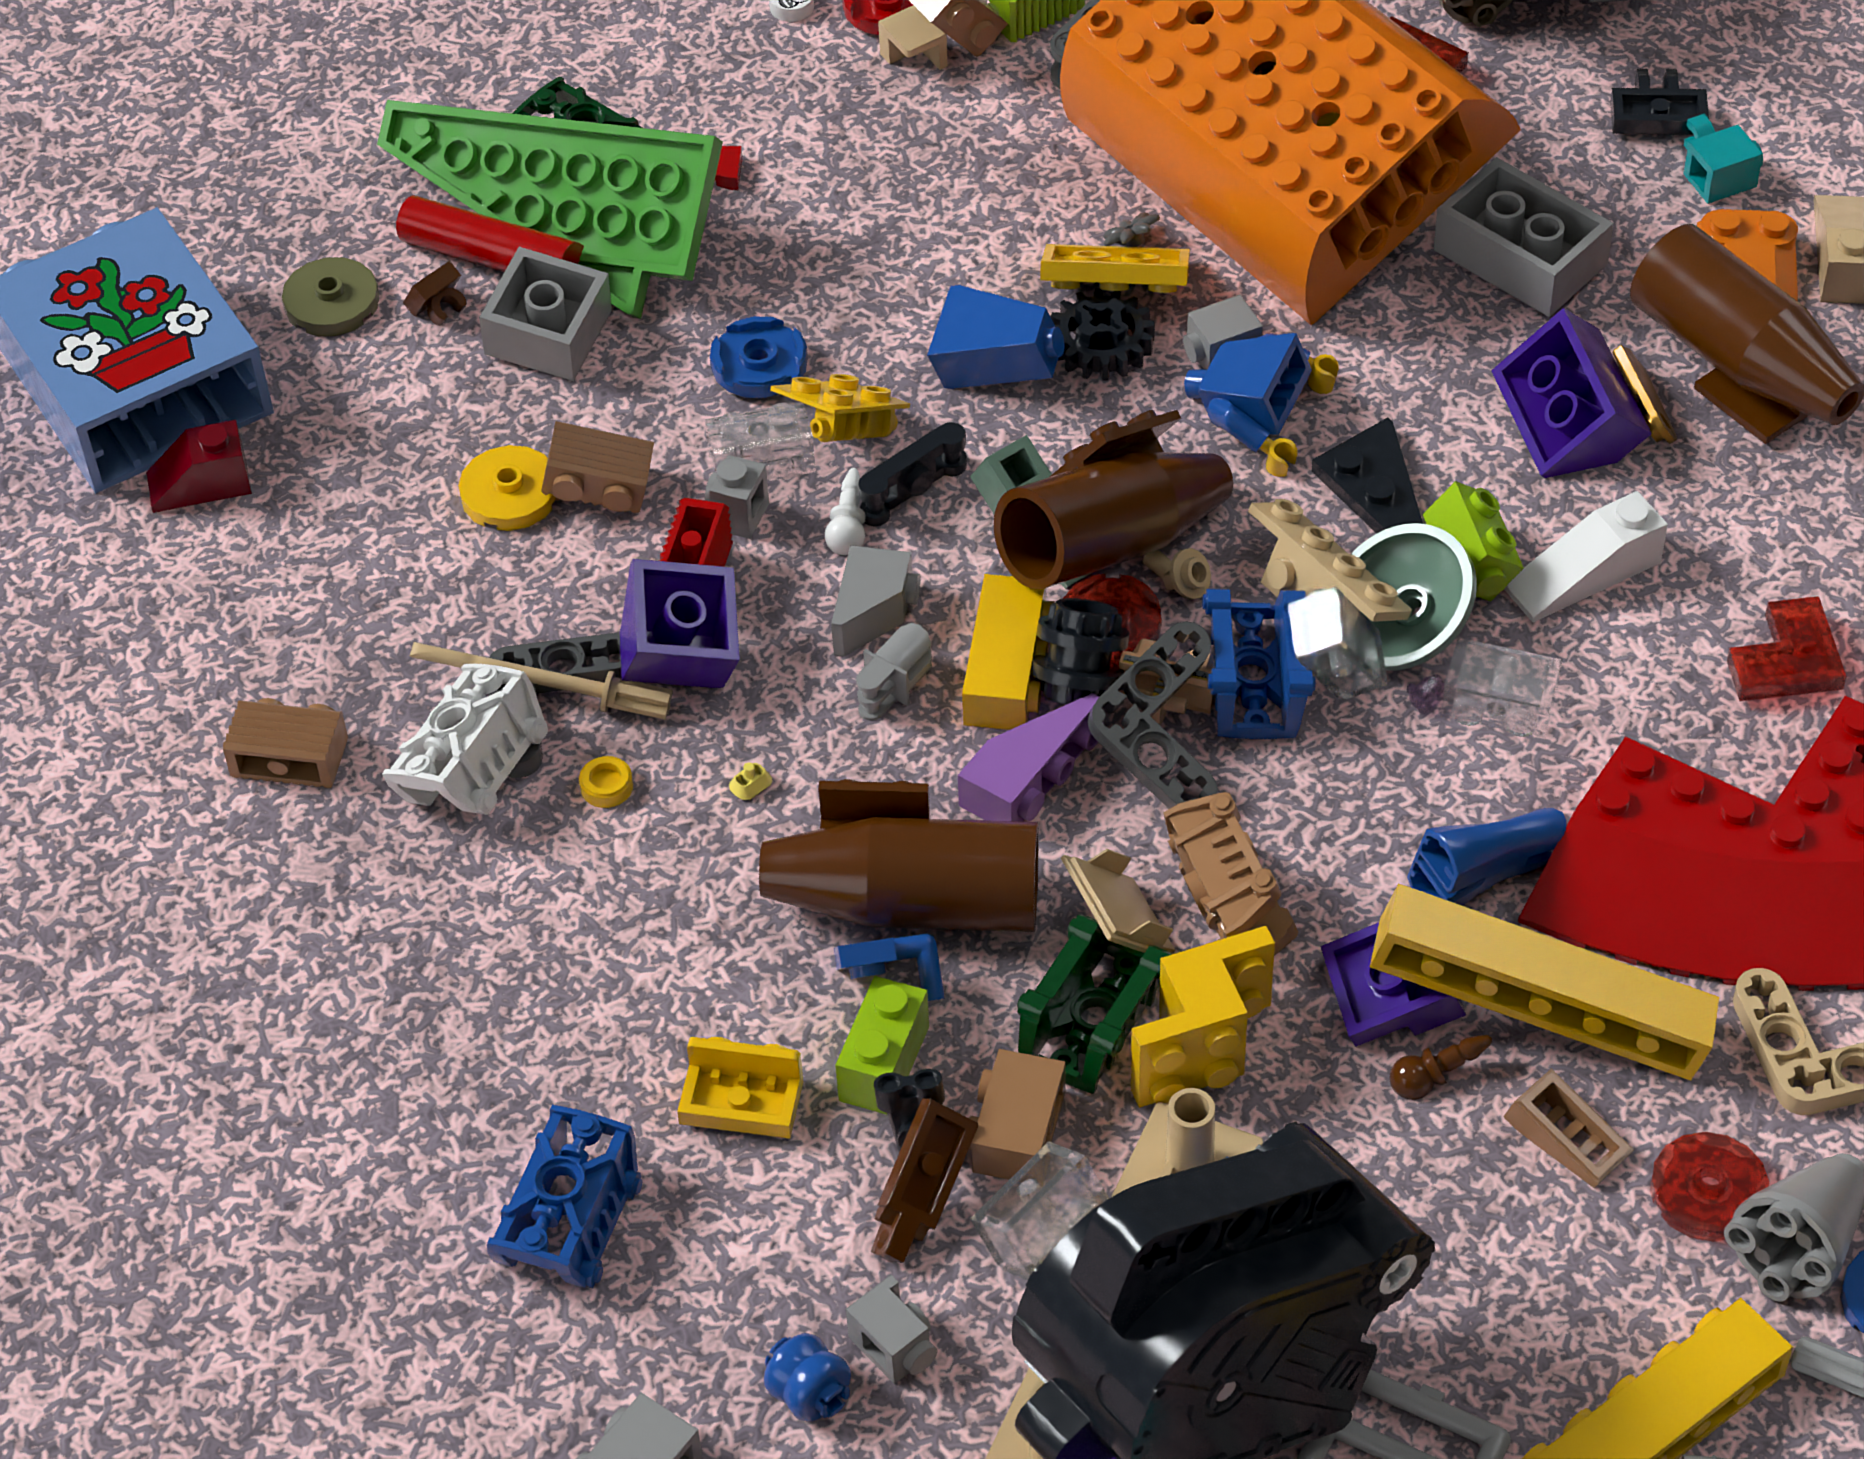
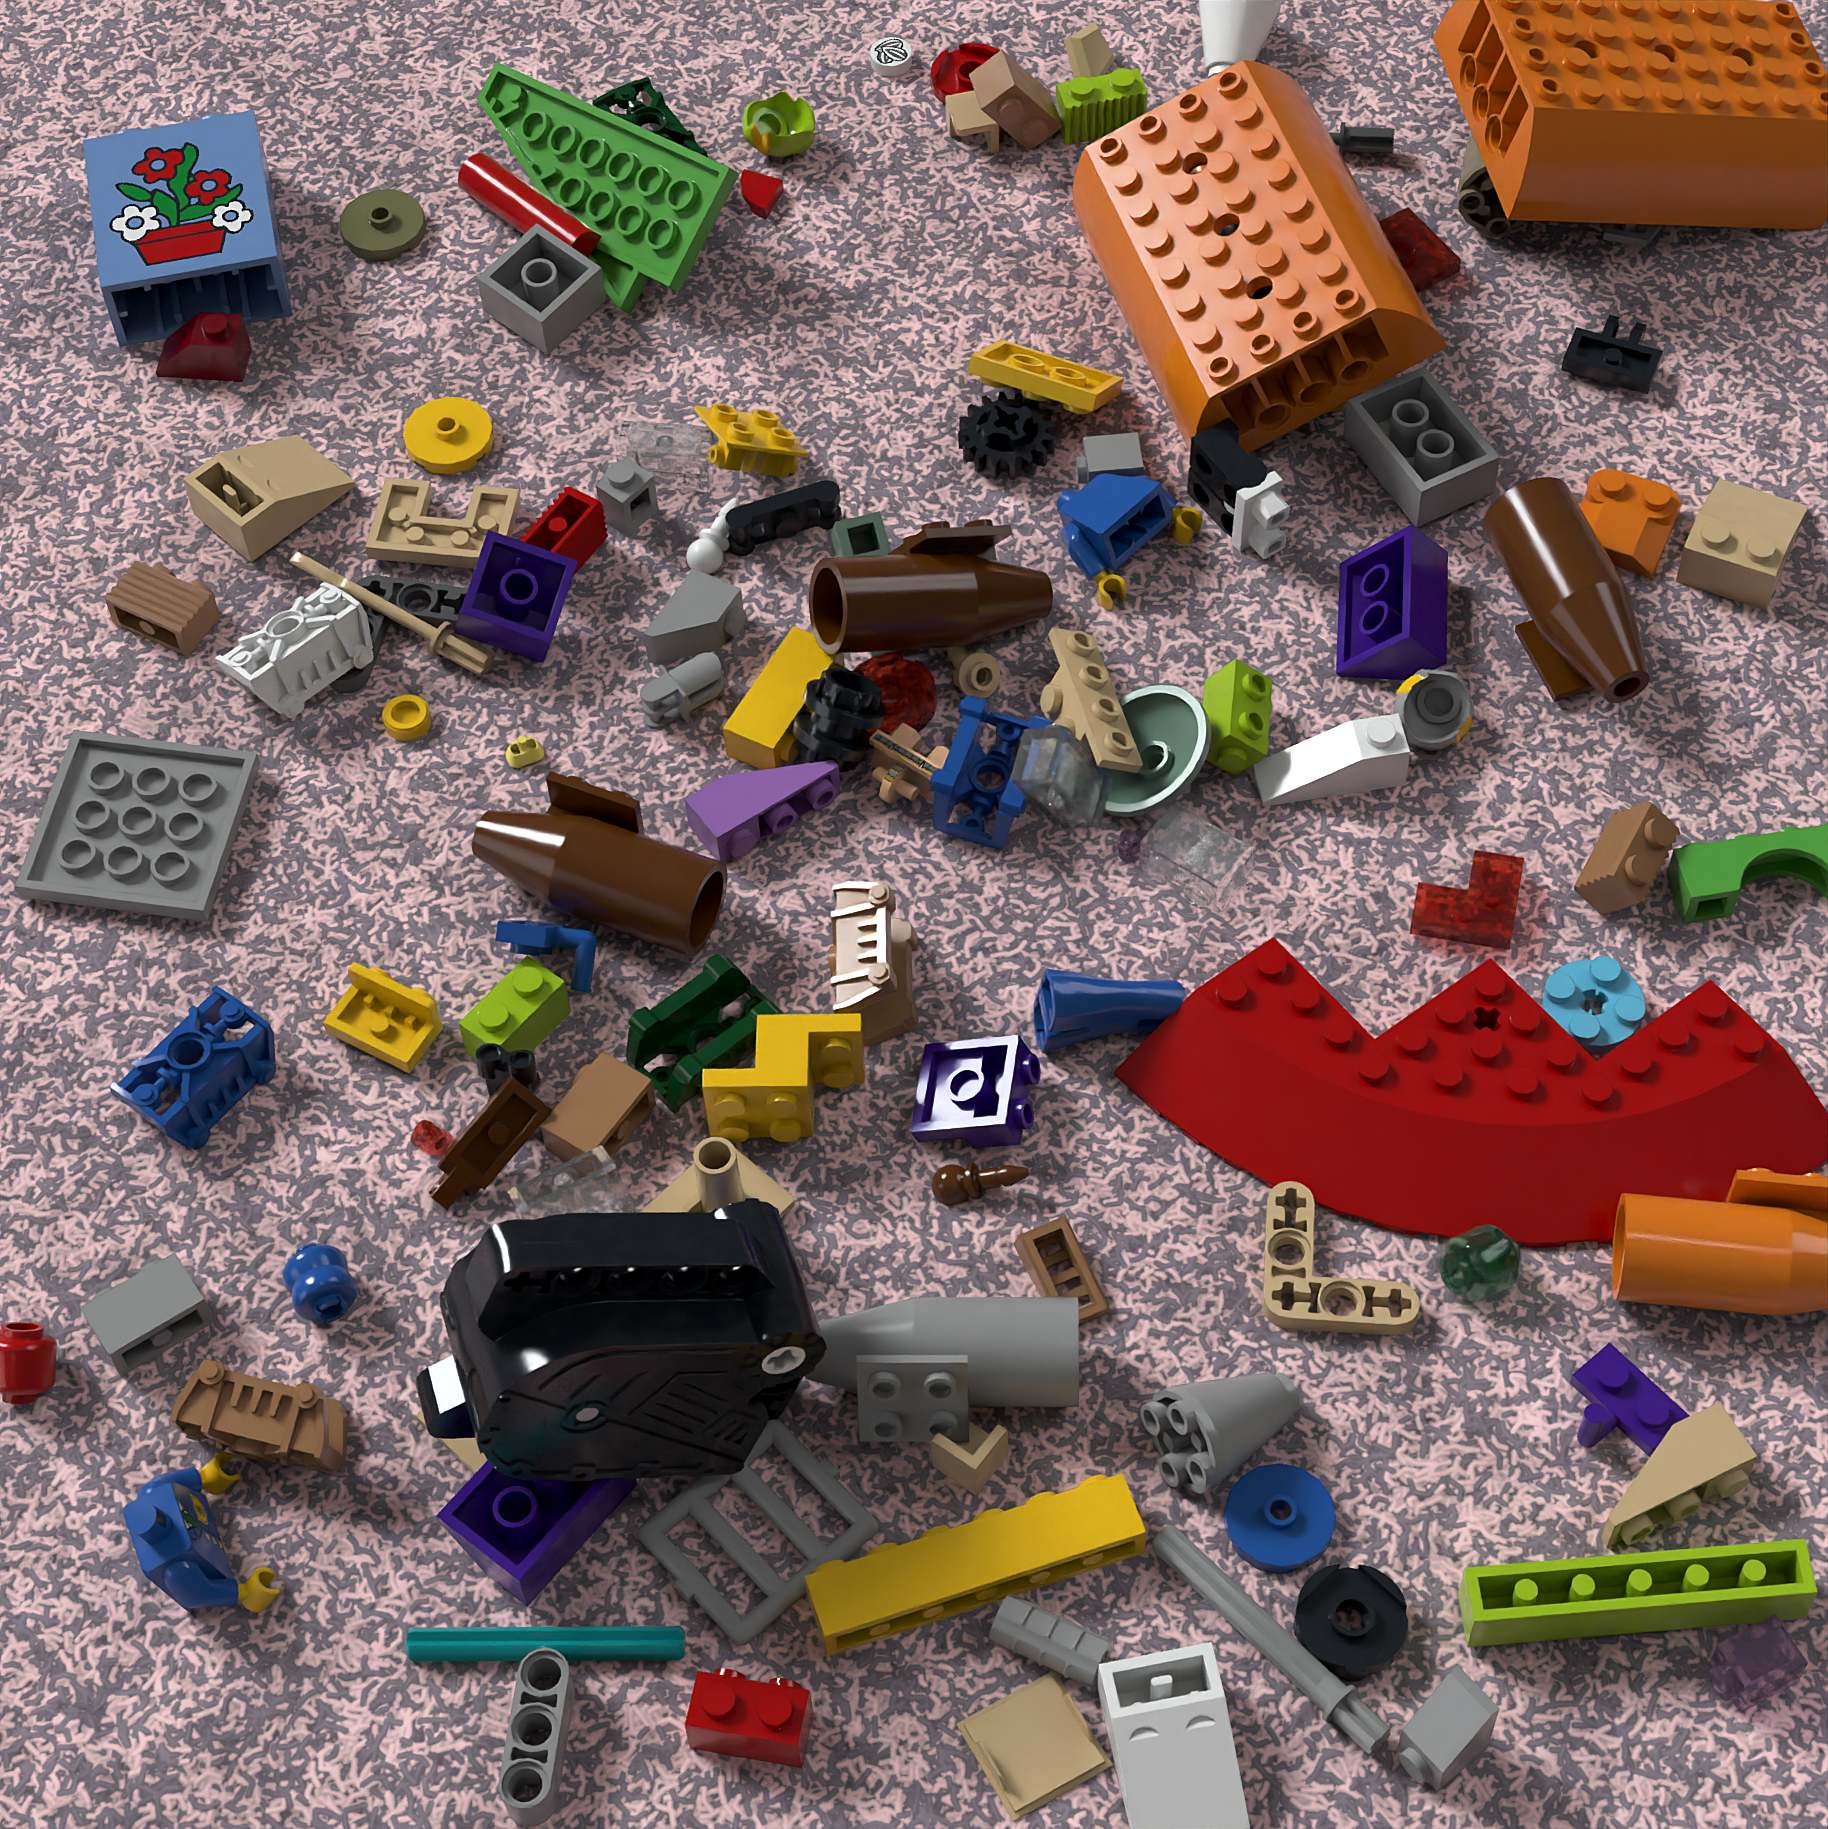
camera: 20 degrees right, 5 degrees up
(340, 597) = (264, 492): none -> tan slope
(368, 973) = (138, 825): none -> light grey plate
(433, 290) = (463, 242): reddish brown tile -> none
(519, 600) = (406, 535): none -> tan plate
(597, 467) = (521, 438): medium nougat brick -> none
(715, 92) = (779, 125): none -> lime hair
(757, 355) = (706, 374): blue plate -> none
(845, 1196) = (430, 1137): none -> clear red rock
(890, 1331) = (407, 1264): light grey brick -> none
(992, 340) = (903, 416): blue slope -> none
(1117, 901) = (766, 955): tan piece -> none
(1131, 232) = (1081, 347): dark grey plant -> none
(1142, 728) = (858, 801): dark grey beam -> none
(1367, 324) = (1237, 490): none -> hips
(1371, 477) = (1183, 634): black wing -> none
(1524, 1232) = (937, 1356): none -> light grey piece
(1545, 982) = (1088, 1137): yellow brick -> none
(1569, 1334) = (973, 1461): none -> tan panel
(1641, 385) = (1465, 620): pearl gold piece -> none
(1664, 477) = (1434, 709): none -> light grey hair
(1688, 1201) = (1136, 1342): clear red plate -> none
(1720, 161) = (1644, 423): teal brick -> none

